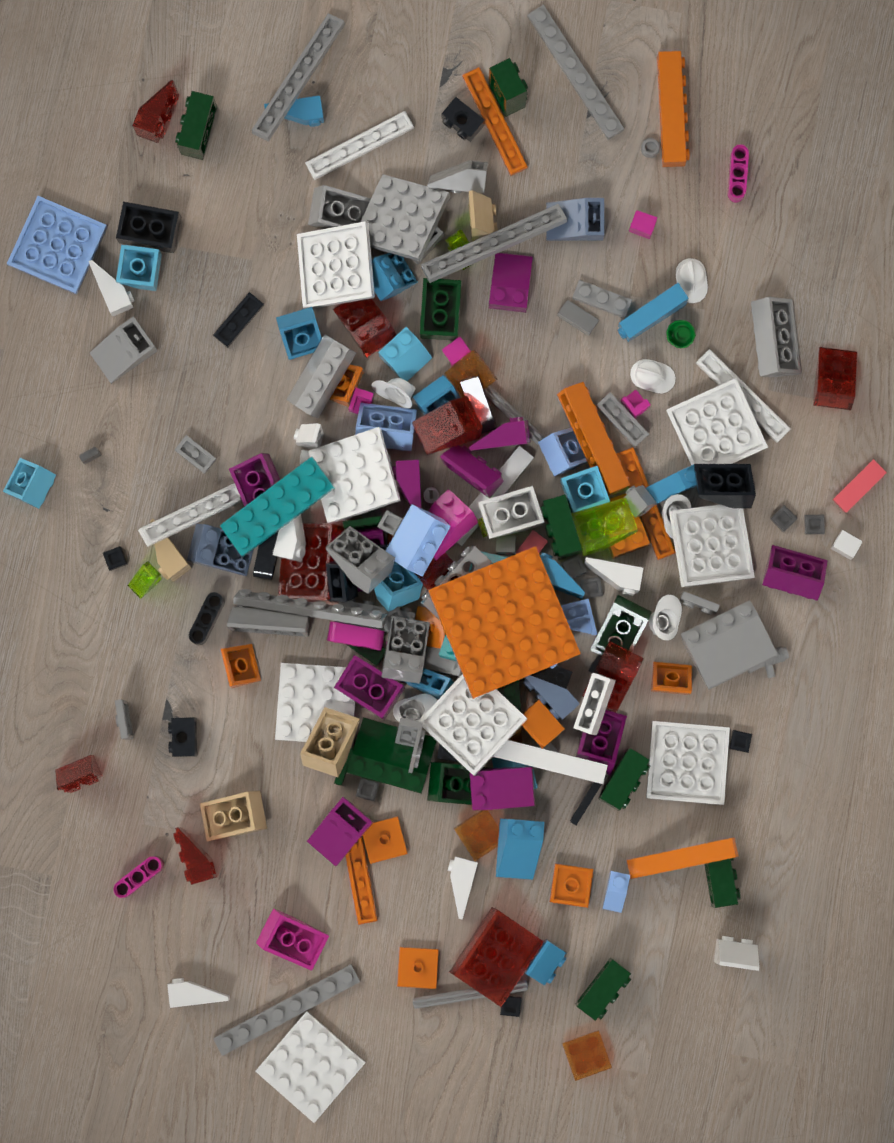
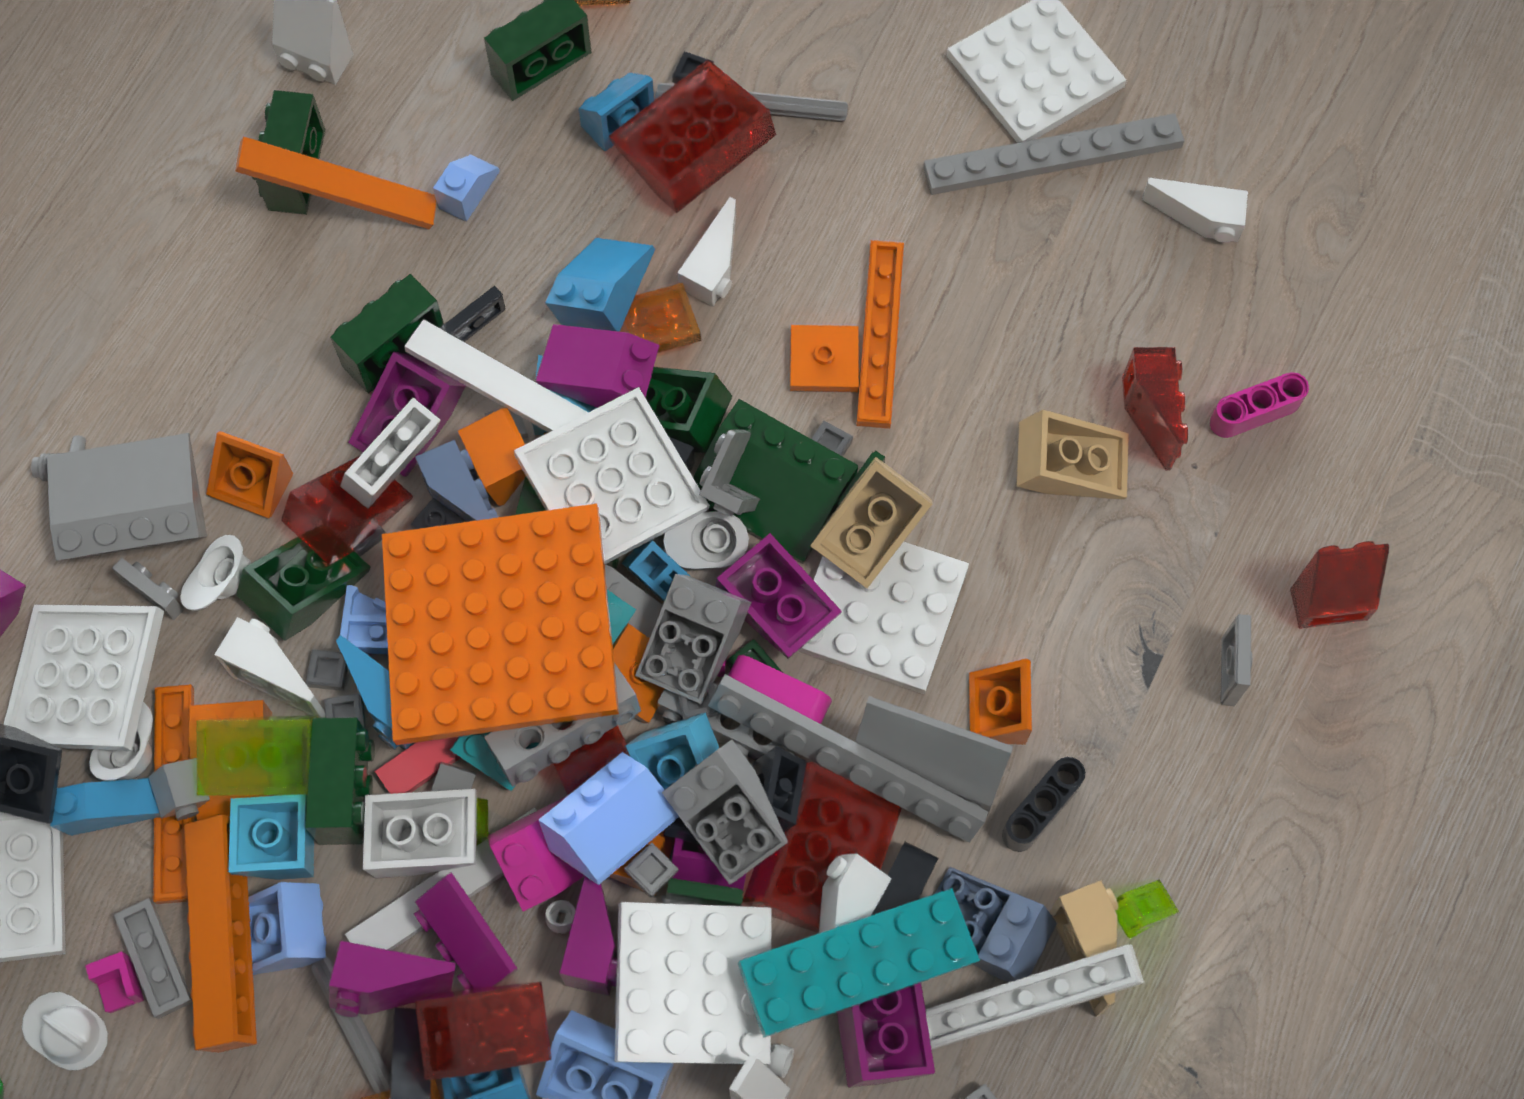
camera: 170 degrees left, 15 degrees down
(115, 558) = (1193, 968): black tile -> none
(189, 747) = (1120, 625): black brick -> none
(292, 939) = (1022, 247): dark pink slope -> none
(340, 831) = (891, 381): magenta slope -> none
(417, 967) = (824, 159): orange plate -> none
(571, 885) = (536, 210): orange plate -> none
(688, 762) = (271, 341): white plate -> none
(740, 741) = (175, 353): black tile -> none

